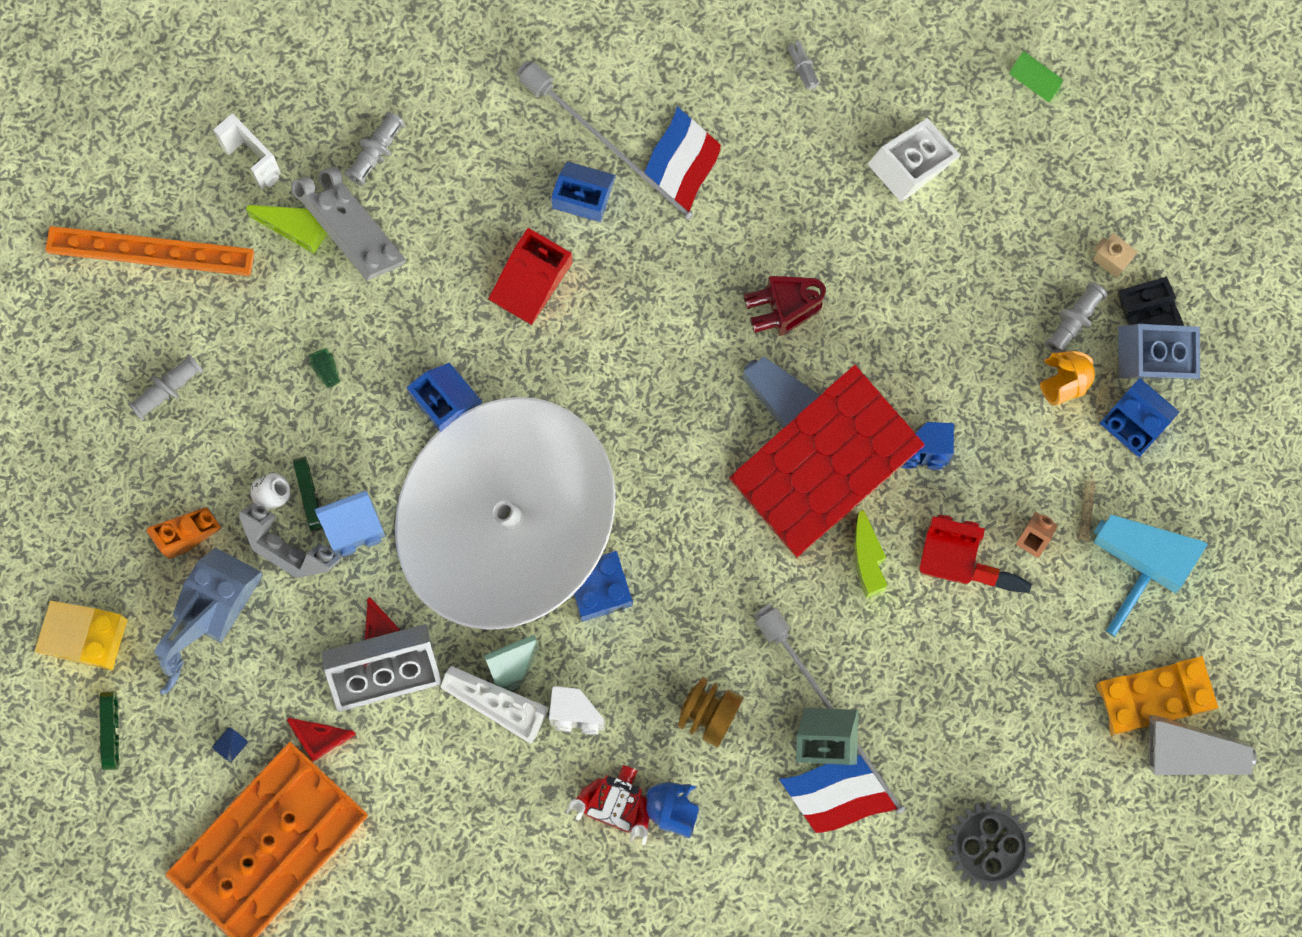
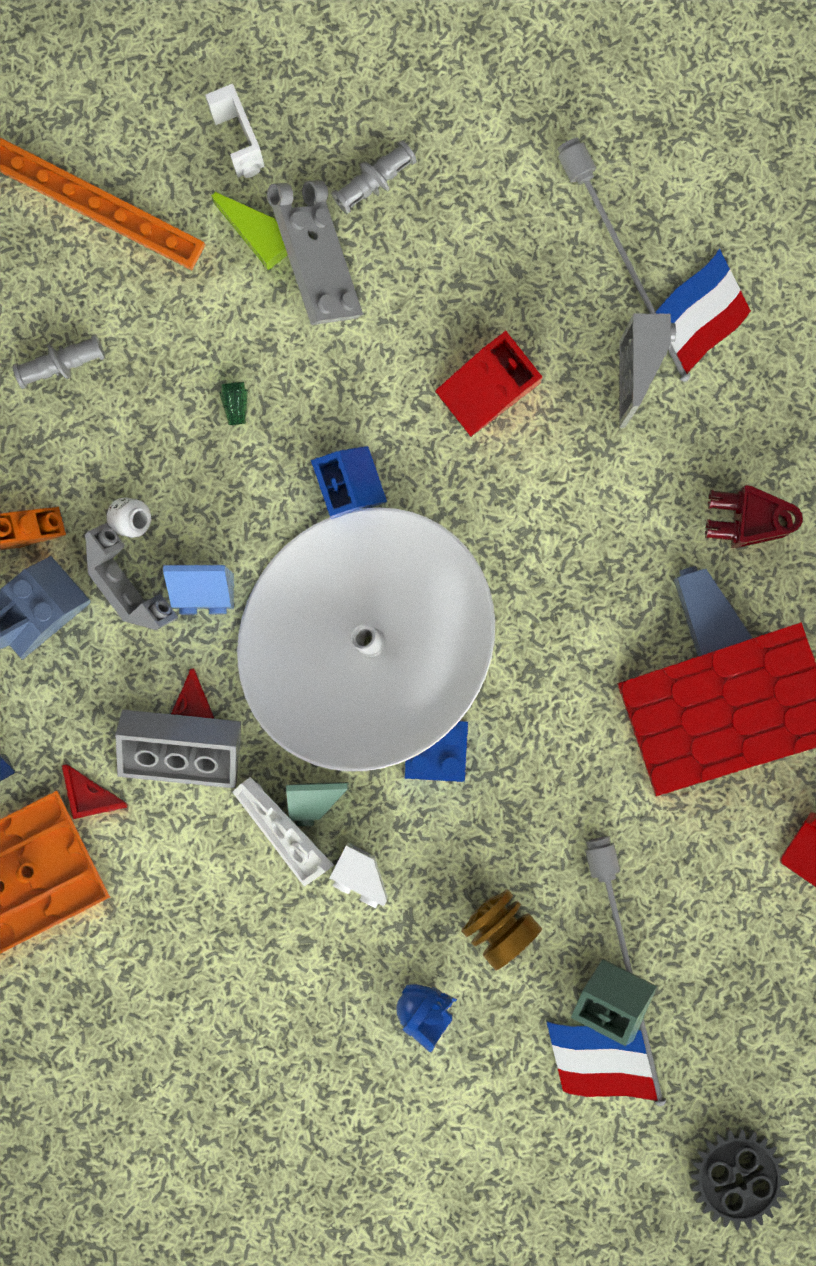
camera: 25 degrees right, 10 degrees up
(307, 492) = (168, 526): dark green beam -> none
(582, 191) = (581, 308): blue slope -> none
(615, 803) = (367, 985): torso -> none
(644, 207) = (640, 356): none -> light grey slope
(867, 556) = (731, 824): lime slope -> none

